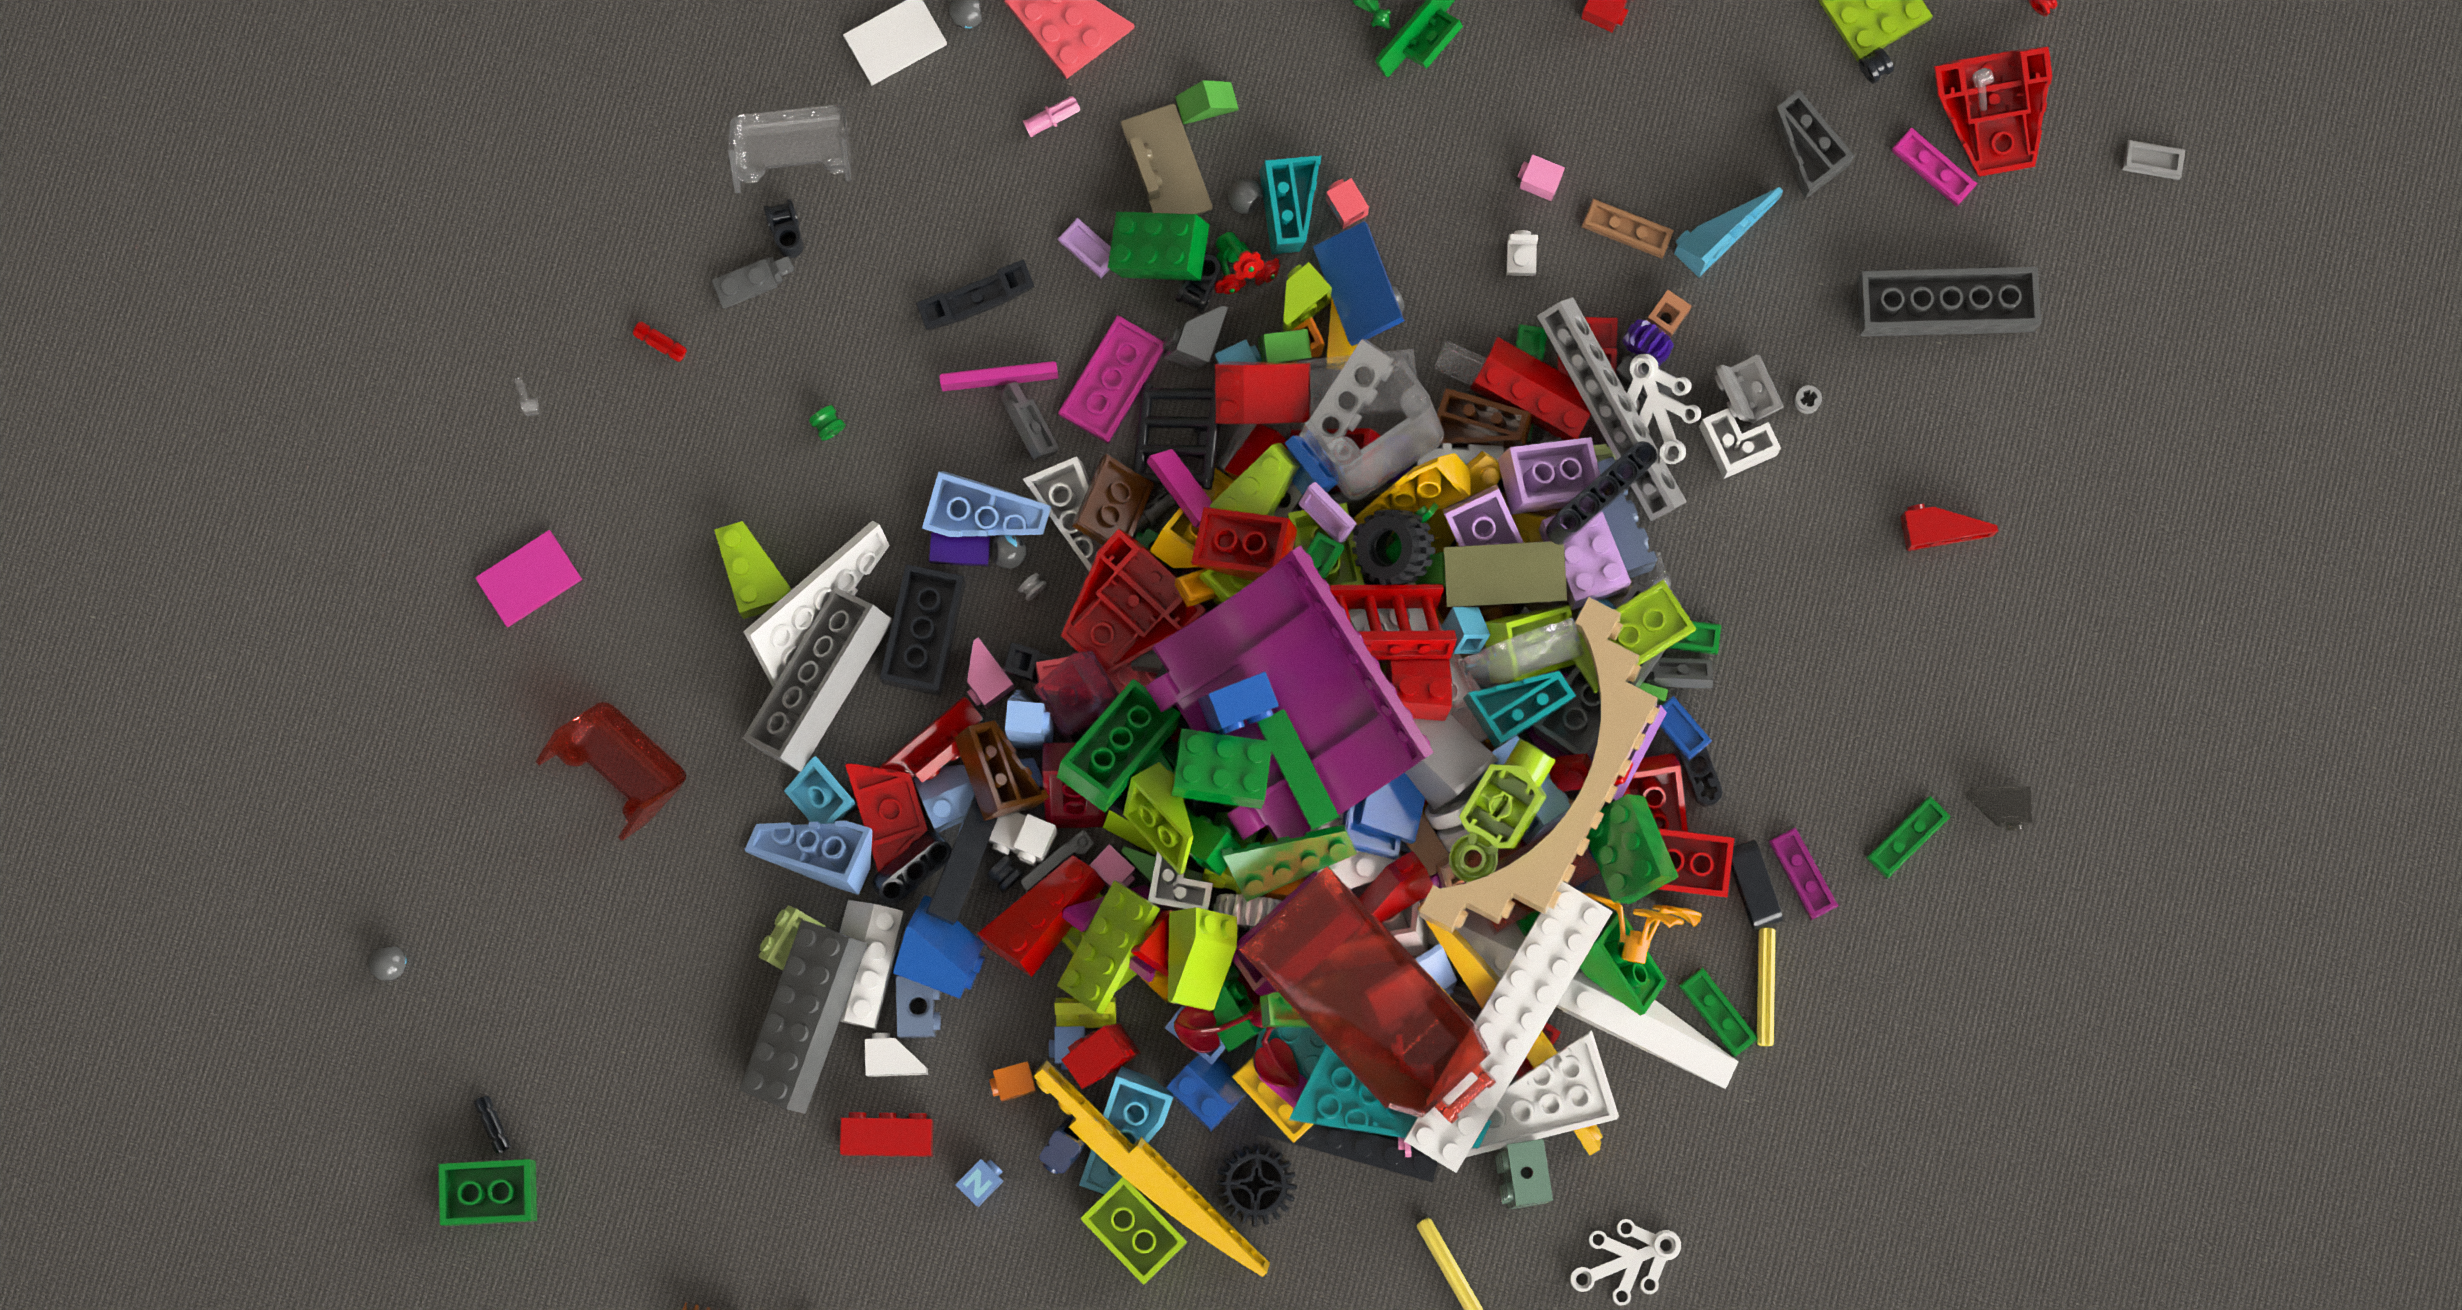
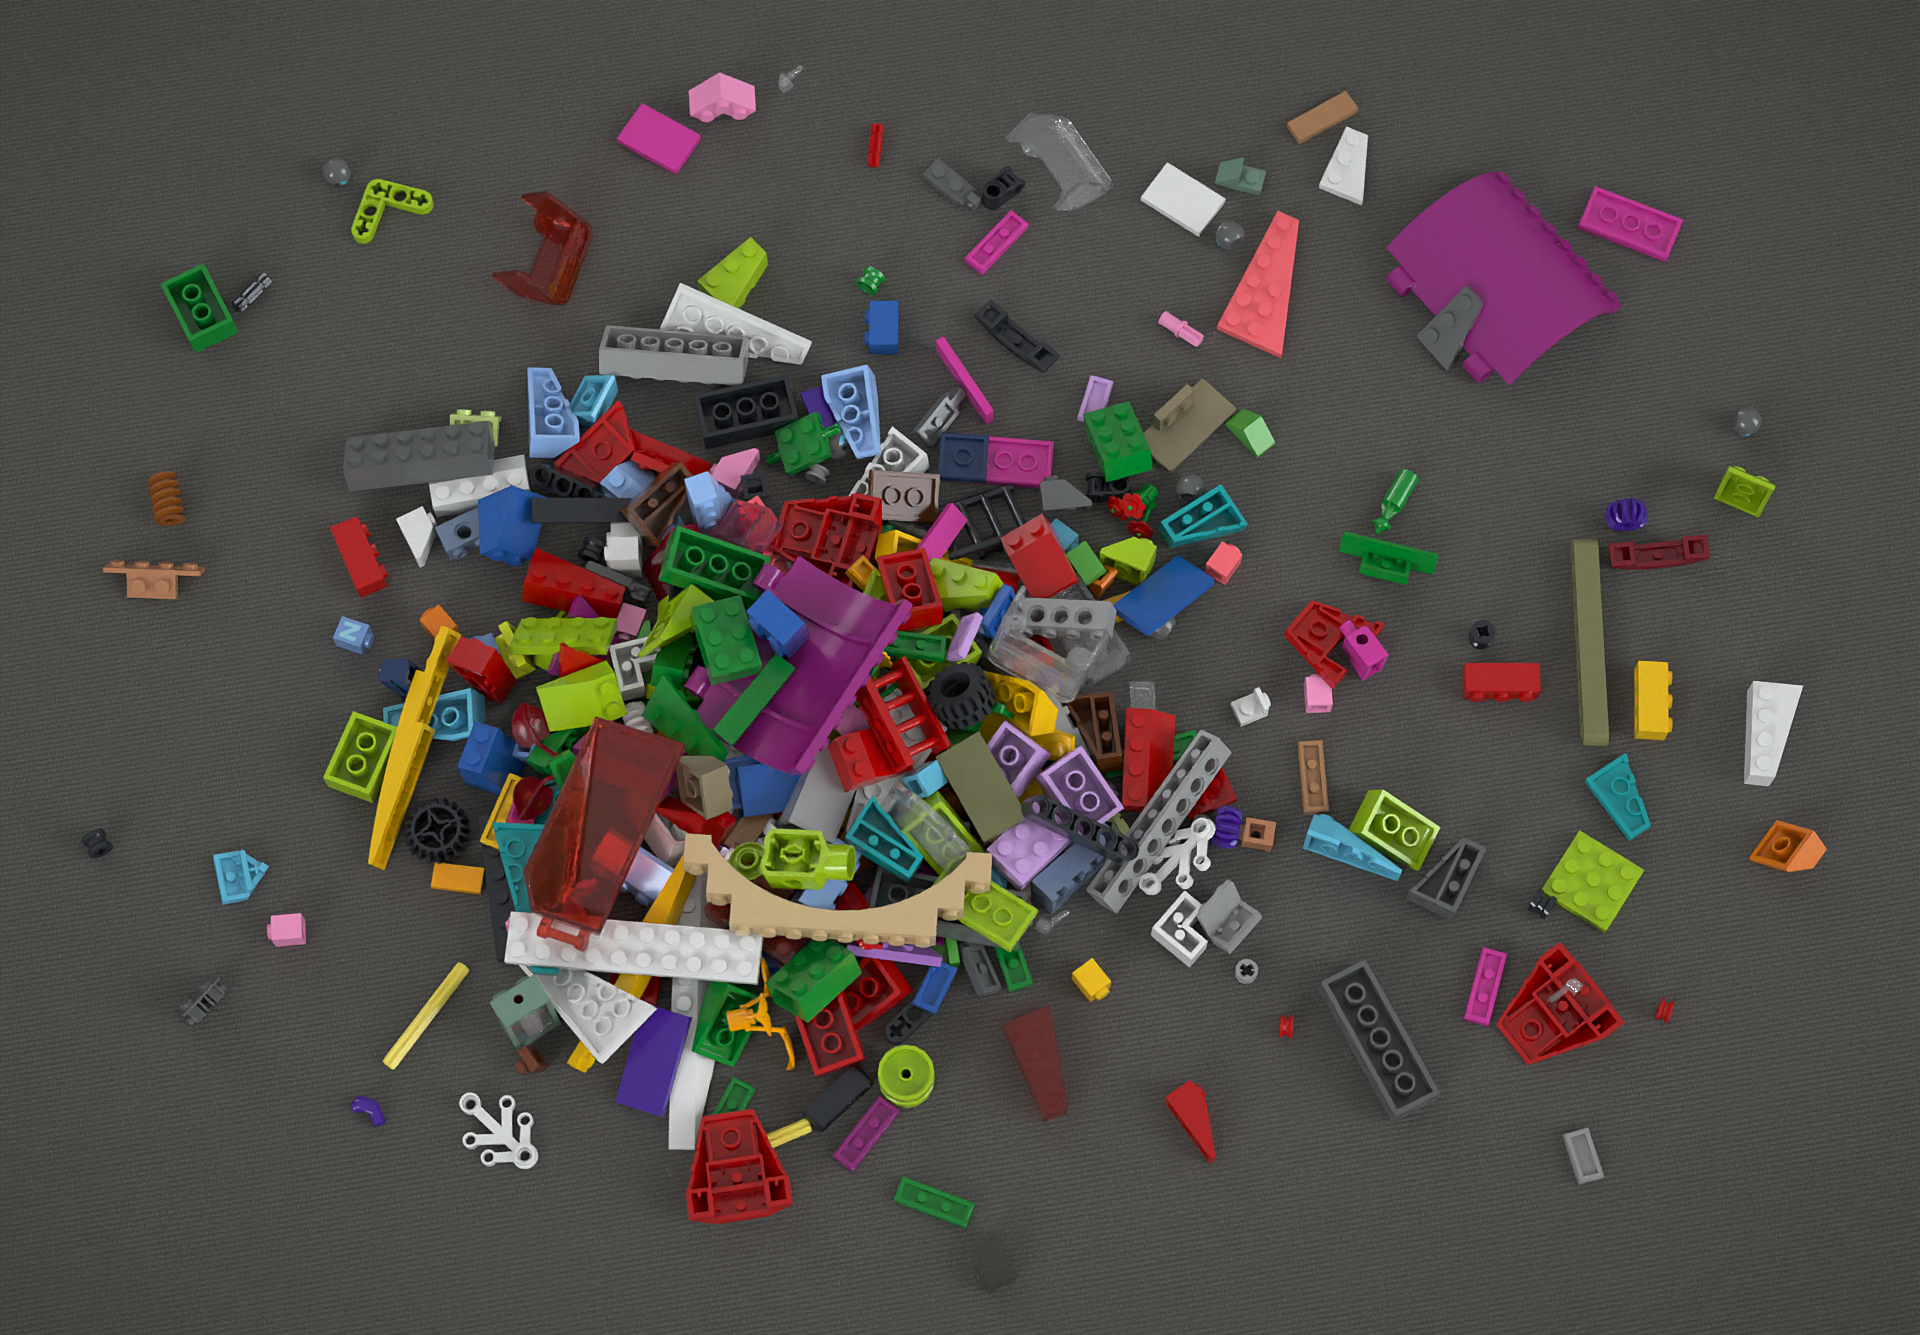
camera: 65 degrees right, 10 degrees down
(449, 930) = (379, 202): none -> lime beam
(519, 484) = (722, 95): none -> bright pink brick
(845, 264) = (996, 242): none -> dark pink tile
(891, 435) = (883, 327): none -> blue brick
(993, 585) = (803, 443): none -> green plate
(1091, 420) = (963, 457): none -> dark blue tile
(1318, 1185) = (458, 878): none -> light orange tile
(1371, 866) = (704, 785): none -> dark tan slope
(1475, 143) = (1318, 633): none -> red wing
(1519, 106) = (1363, 650): none -> dark pink torso
(1565, 1192) = (531, 1060): none -> copper tile
(1632, 1061) = (654, 1061): none -> dark purple tile
(1725, 174) = (1394, 828): none -> lime slope
(1747, 562) = (1092, 980): none -> yellow brick
(1783, 798) = (891, 1079): none -> lime wheel
(1788, 1026) = (735, 1171): none -> red wedge
(1803, 656) = (1037, 1056): none -> clear red wedge
(1887, 388) = (1285, 1026): none -> red bush

